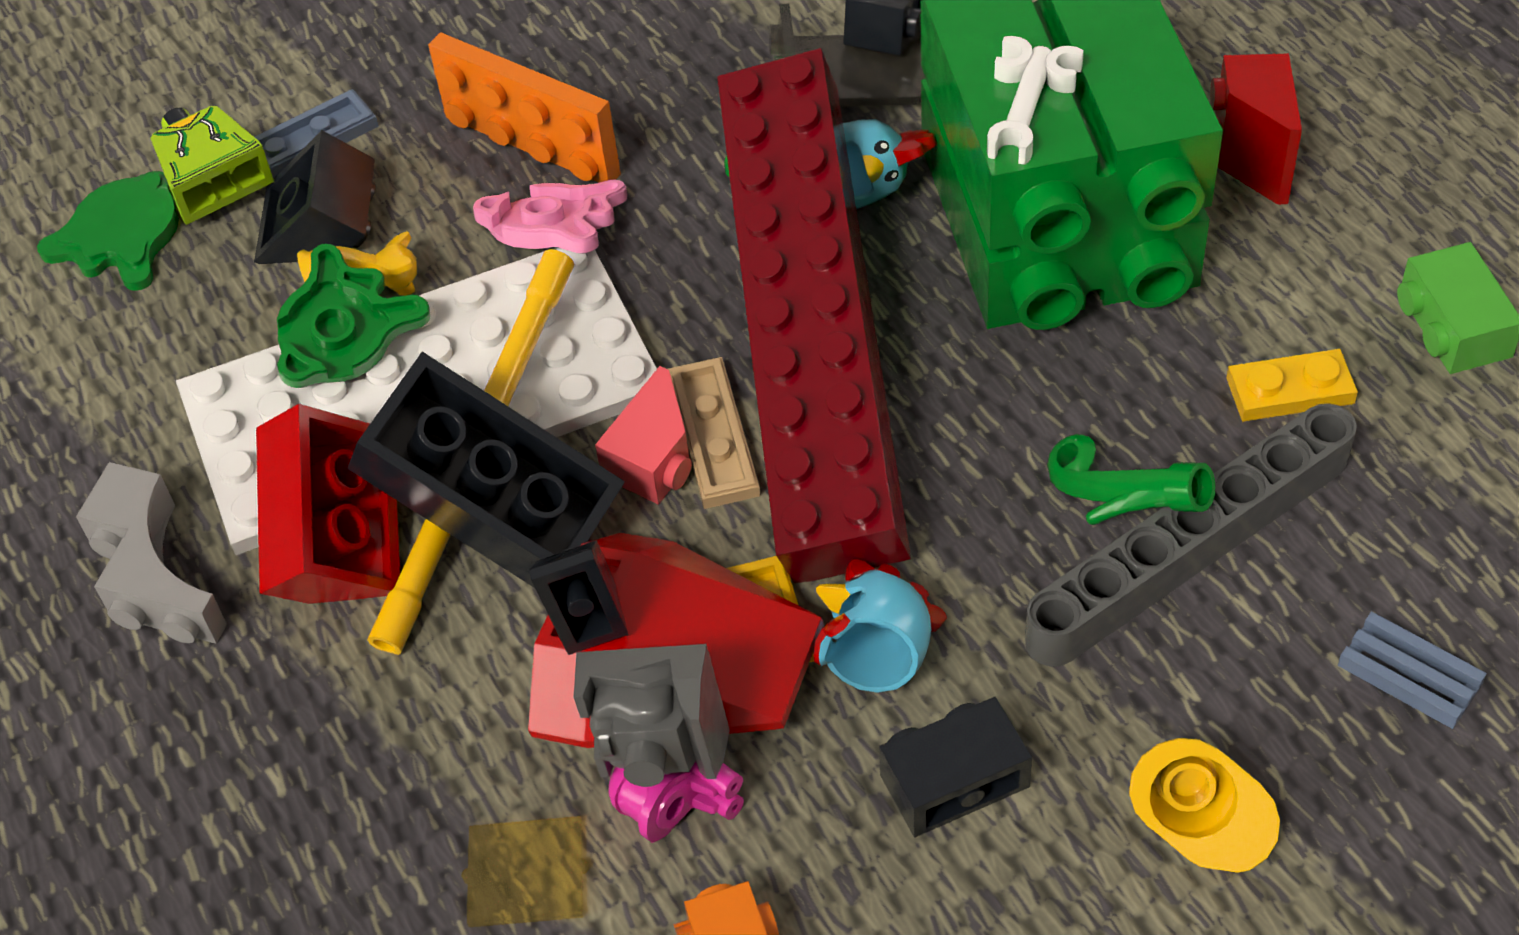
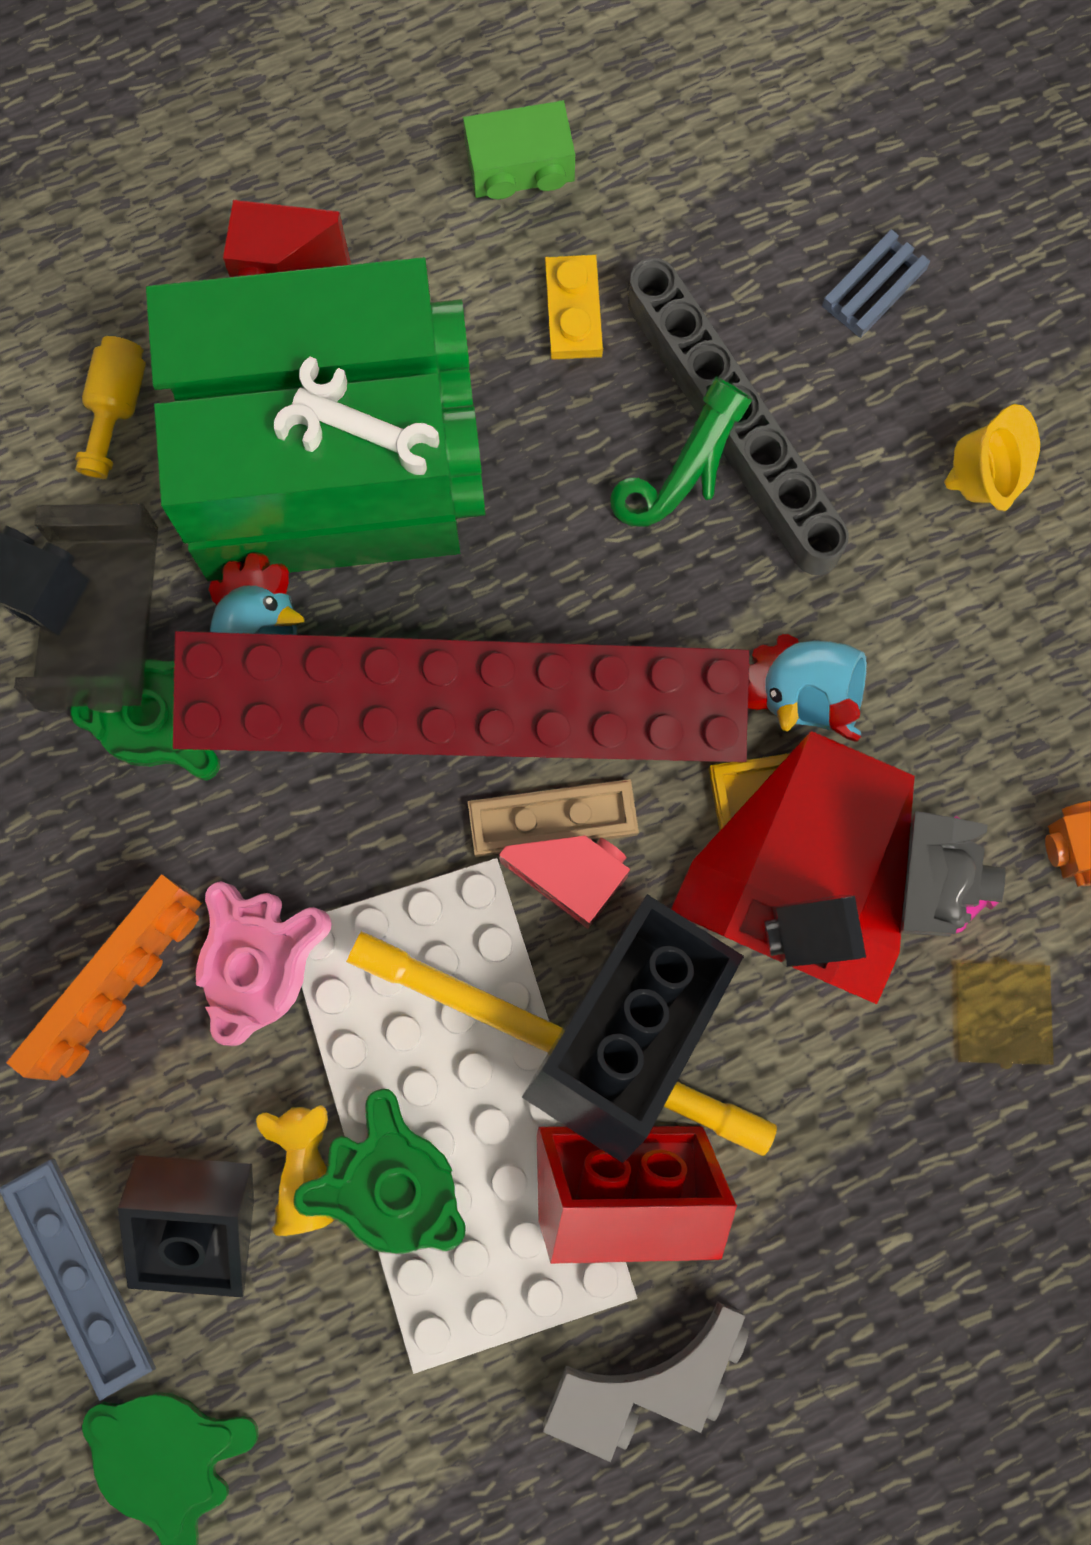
camera: 90 degrees left, 25 degrees up
(208, 160) = (104, 1357): lime torso -> none
(954, 765) = (947, 644): black brick -> none

